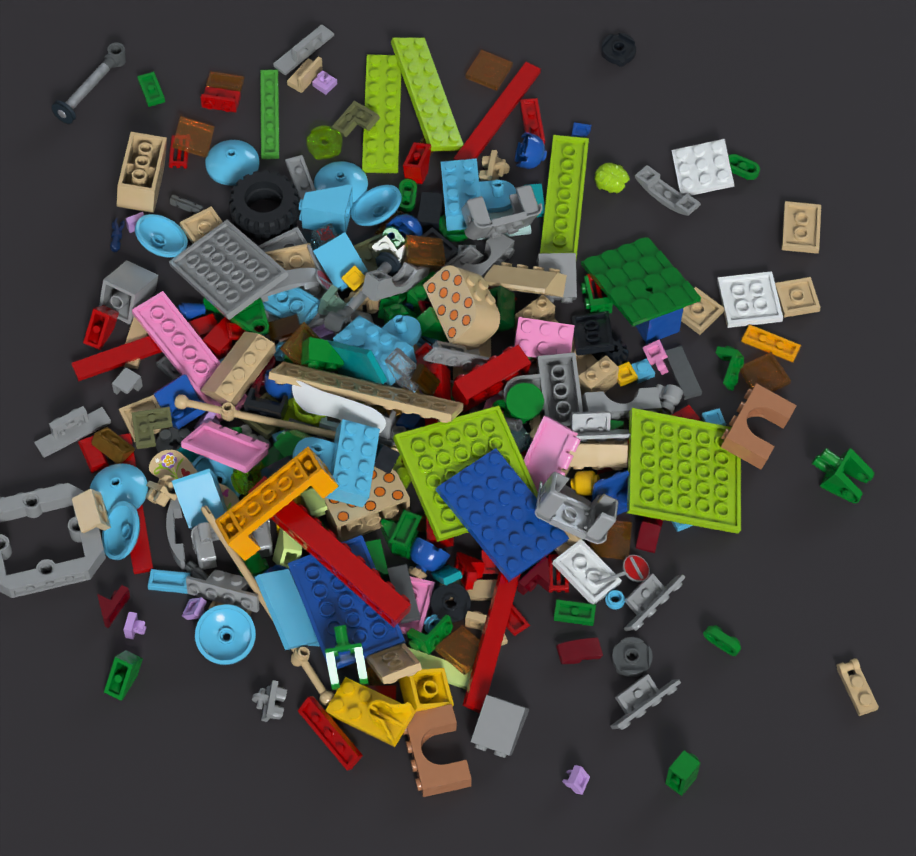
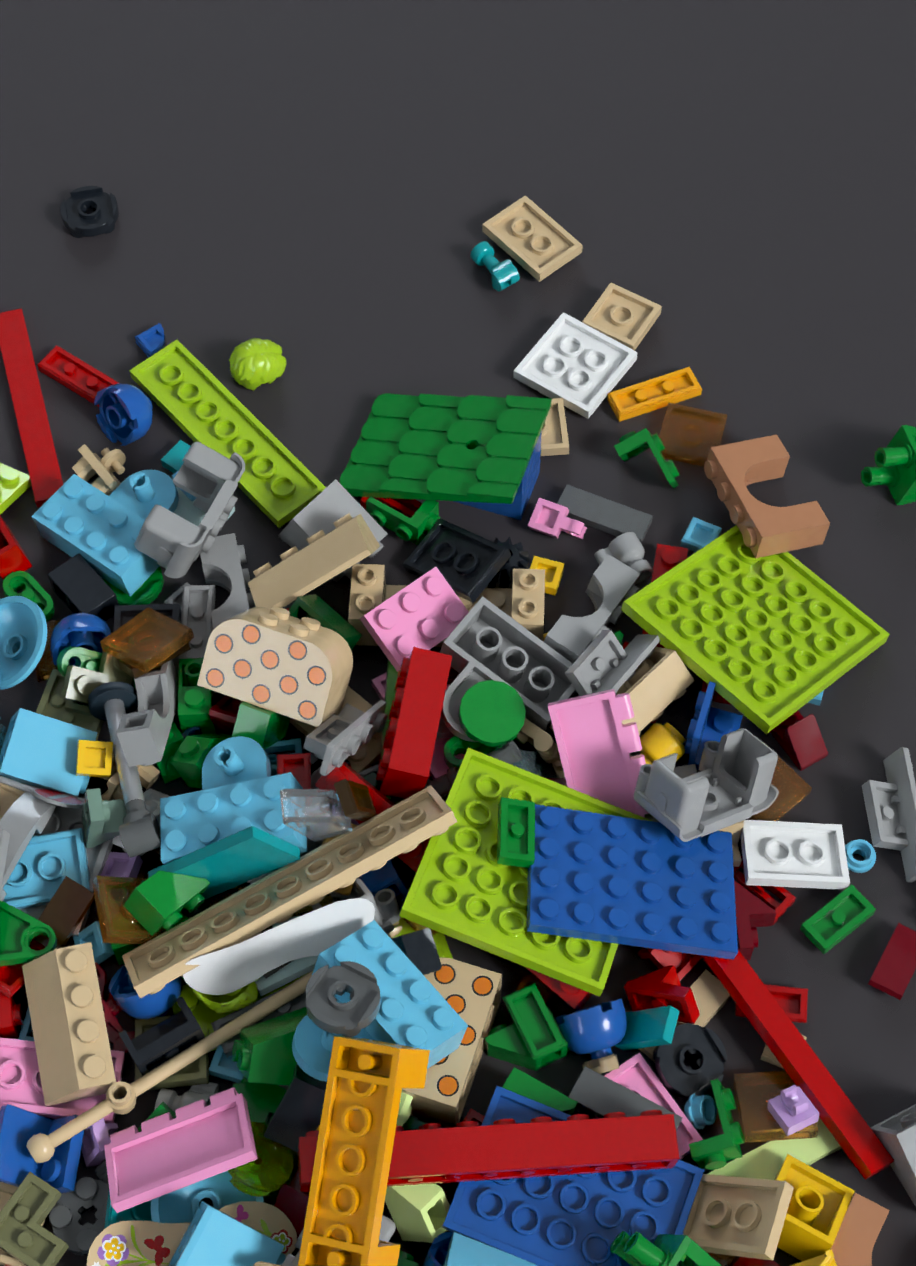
camera: 45 degrees left, 0 degrees up
(329, 448) = (343, 1017): none -> dark grey plate
(464, 654) = (793, 1110): none -> lavender tile
(474, 451) = (516, 833): none -> green plate
(475, 620) = (743, 1049): tan plate -> none
(634, 568) = (836, 796): piece -> none
(643, 370) = (558, 550): medium azure plate -> none
(665, 194) = (340, 329): light grey slope -> none
(703, 168) = (348, 264): white plate -> none
(743, 167) = (388, 227): green plate -> none
(767, 230) = (503, 273): none -> teal leg

